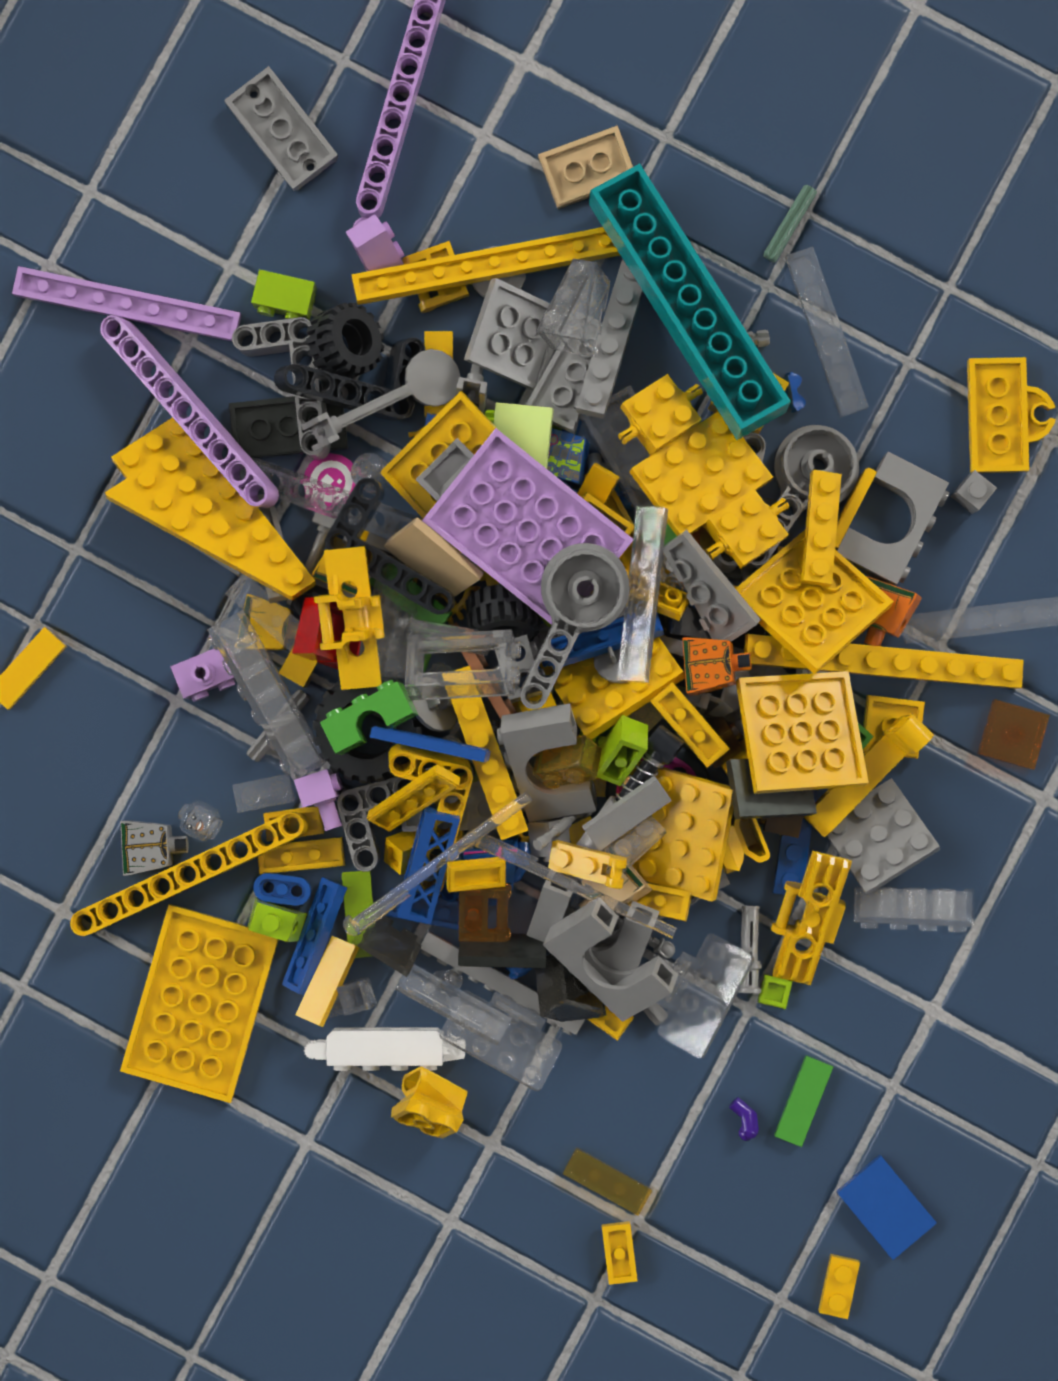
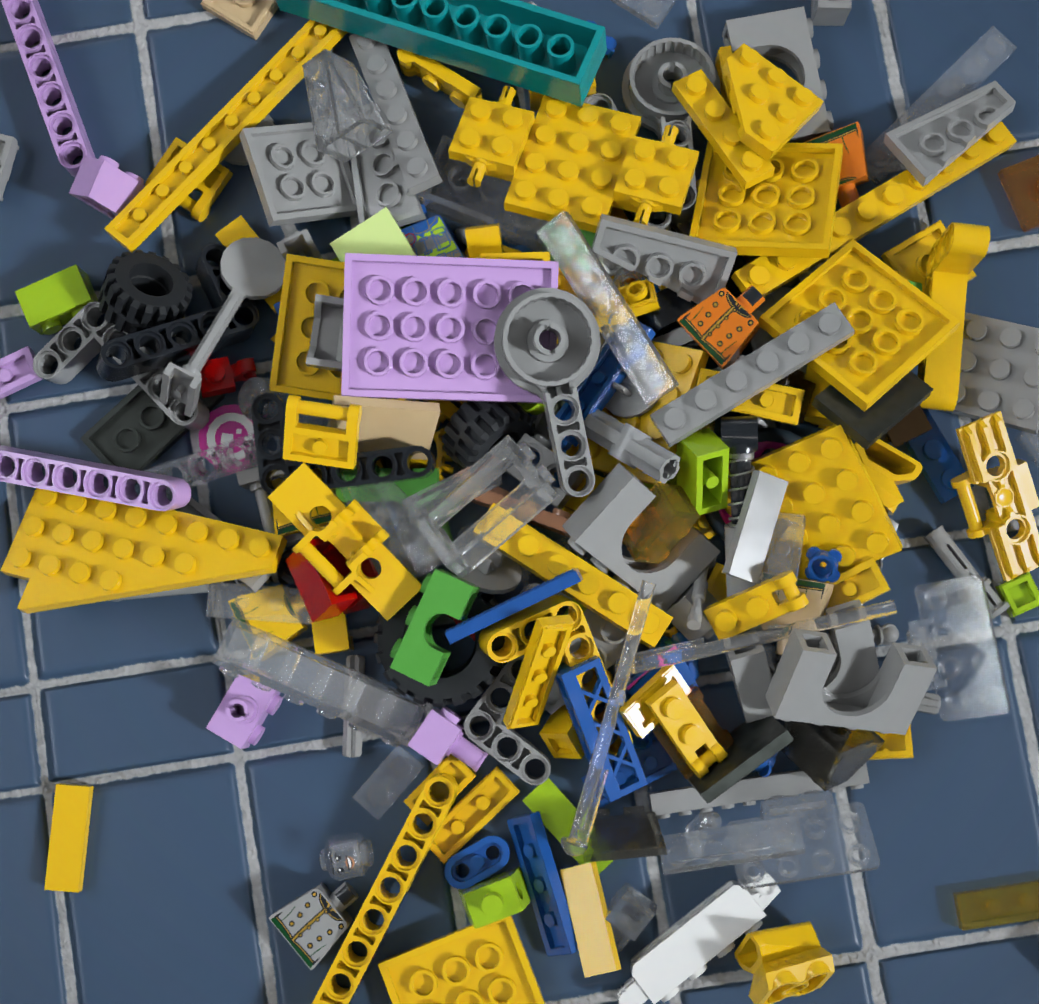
camera: 30 degrees left, 5 degrees down
(356, 435) = (220, 376): none -> red plate
(384, 542) = (321, 443): none -> yellow plate
(482, 907) = (685, 728): none -> yellow plate
(586, 698) = (631, 446): none -> light grey piece
(647, 874) = (823, 574): none -> blue plate
(660, 336) = (438, 77): none -> yellow plate
(700, 713) = (752, 374): none -> light grey plate
(865, 532) = (766, 101): none -> yellow plate
(970, 646) = (945, 133): none -> light grey wing

